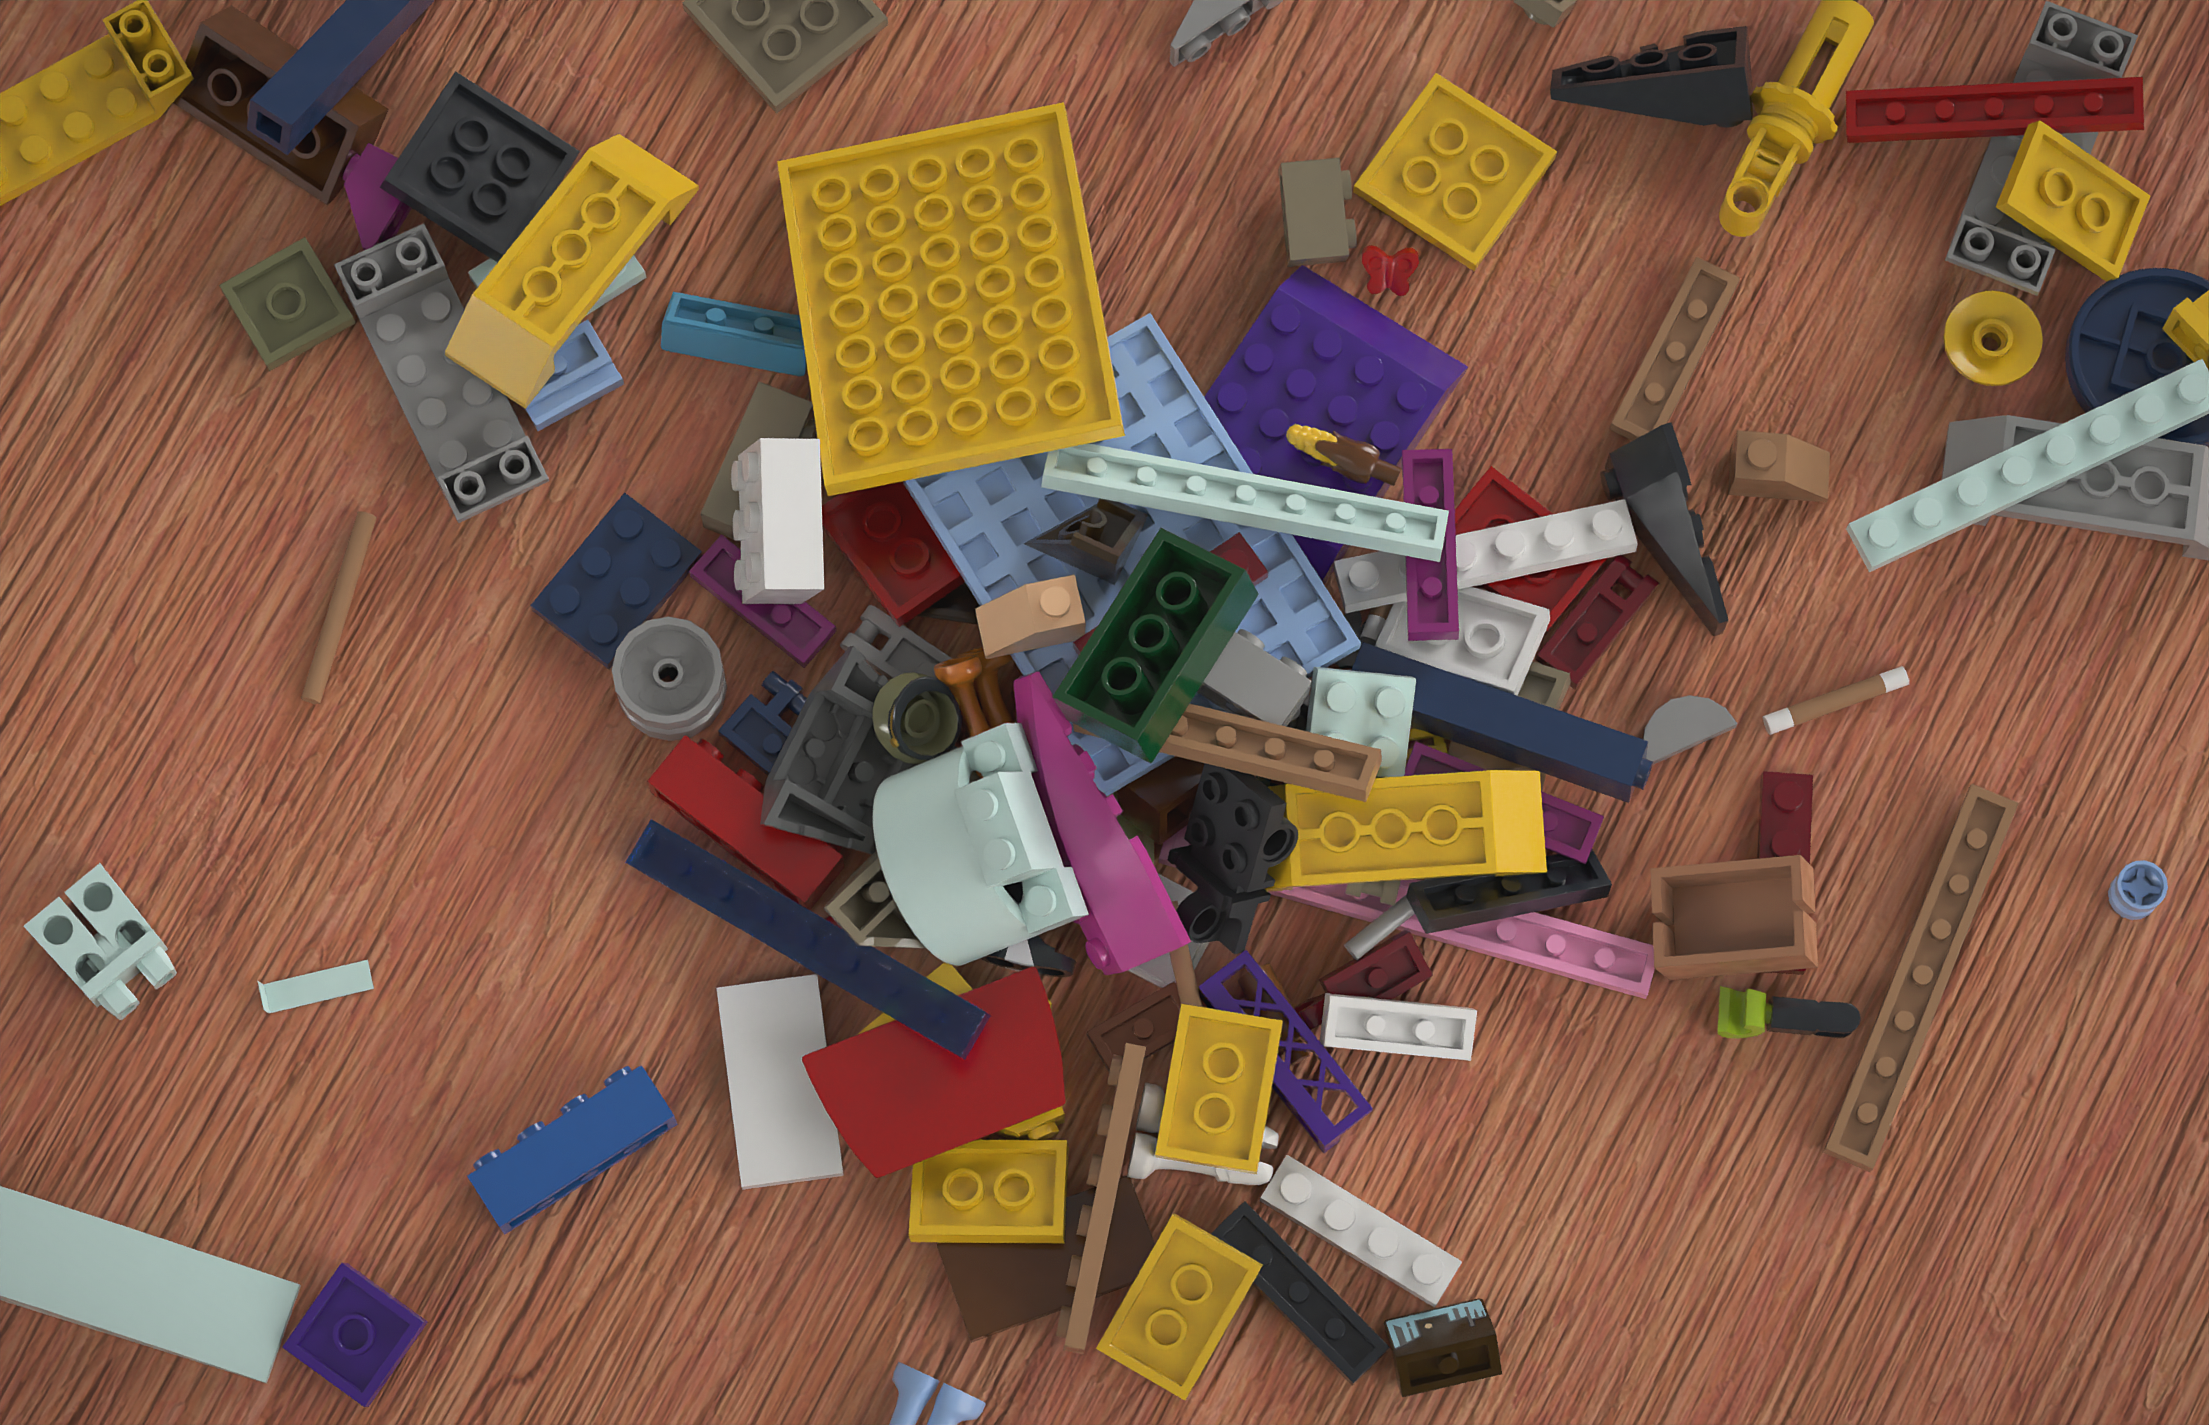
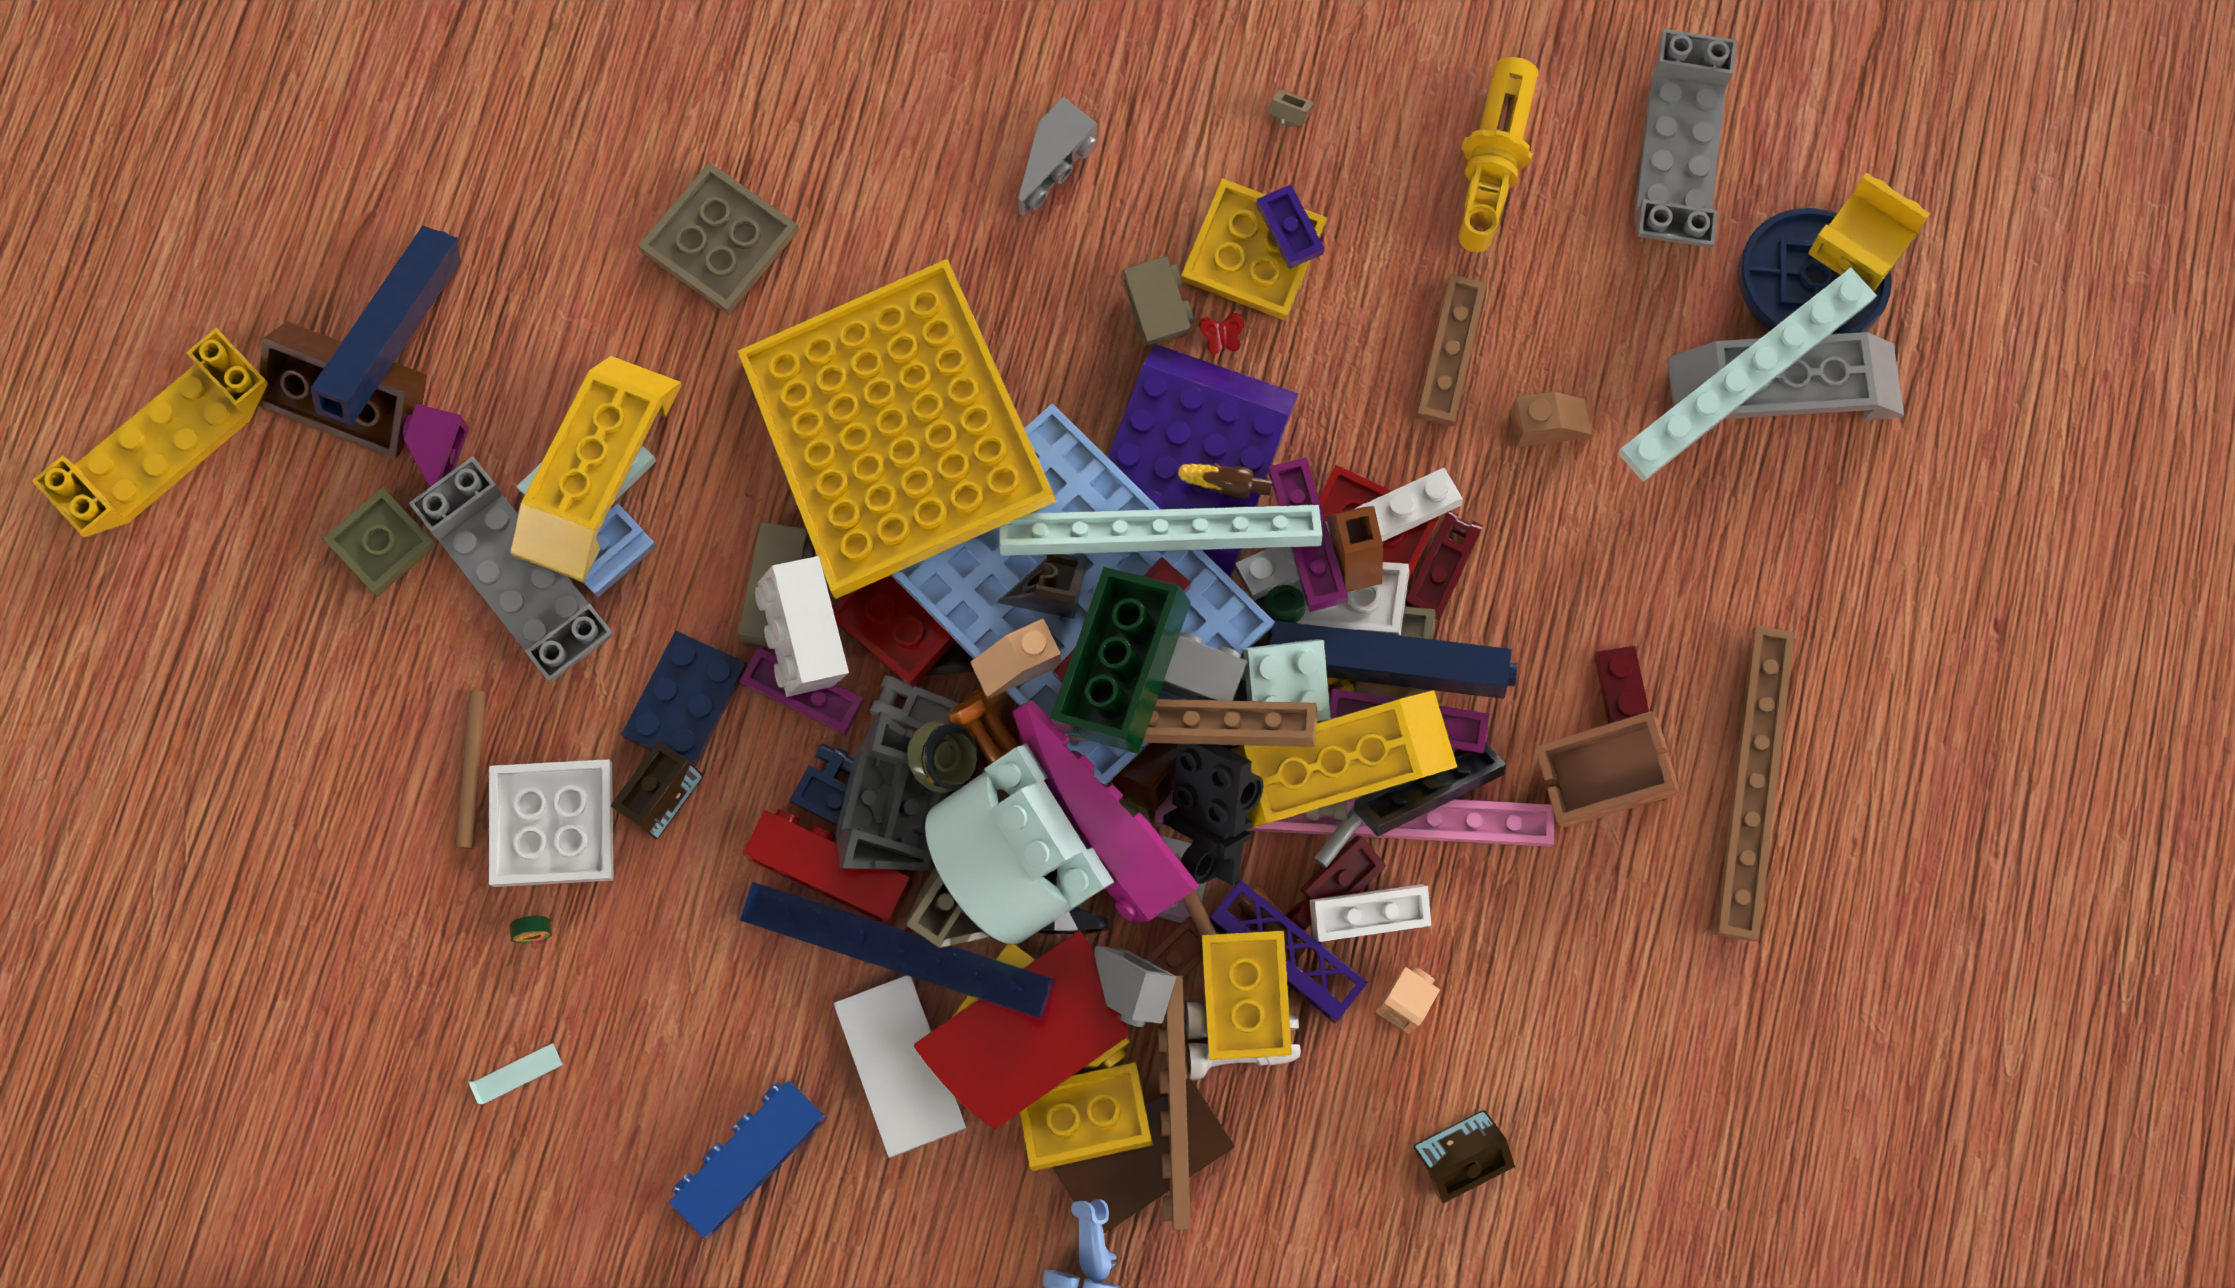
camera: 15 degrees left, 0 degrees up
(113, 955) = (351, 1083): light aqua hips -> none
(370, 816) = (530, 929): none -> dark green tile
(422, 694) = (550, 823): none -> white plate
(479, 167) = (506, 404): black plate -> none
(560, 682) = (657, 790): none -> dark brown panel
(672, 649) = (736, 745): light grey wheel -> none
(734, 334) = (733, 489): dark azure slope -> none
(962, 1359) = (1093, 1255): none -> light blue piece
(1084, 1046) = (1133, 985): none -> light grey slope
(1179, 1306) = (1254, 1174): yellow plate -> none
(1303, 1296) = (1343, 1140): black plate -> none
(1360, 1231) = (1378, 1079): white plate -> none
(1383, 625) = (1285, 604): none -> dark green tile
(1418, 1141) = (1408, 999): none -> light nougat slope
(1486, 575) = (1357, 547): none -> dark orange slope
(1505, 153) = (1290, 226): none -> dark purple plate
(1654, 485) = (1463, 449): black wedge -> none
(1683, 725) = (1529, 628): light grey tile -> none
(1691, 83) = (1416, 145): black wedge -> none
(1747, 1012) = (1635, 839): piece -> none
(1836, 700) = (1636, 585): medium nougat bar -> none
(1994, 109) = (1645, 117): red plate -> none
(2003, 319) = (1692, 274): yellow dish -> none
(2073, 201) = (1719, 172): yellow plate -> none
(2142, 881) = (1903, 671): light blue wheel -> none

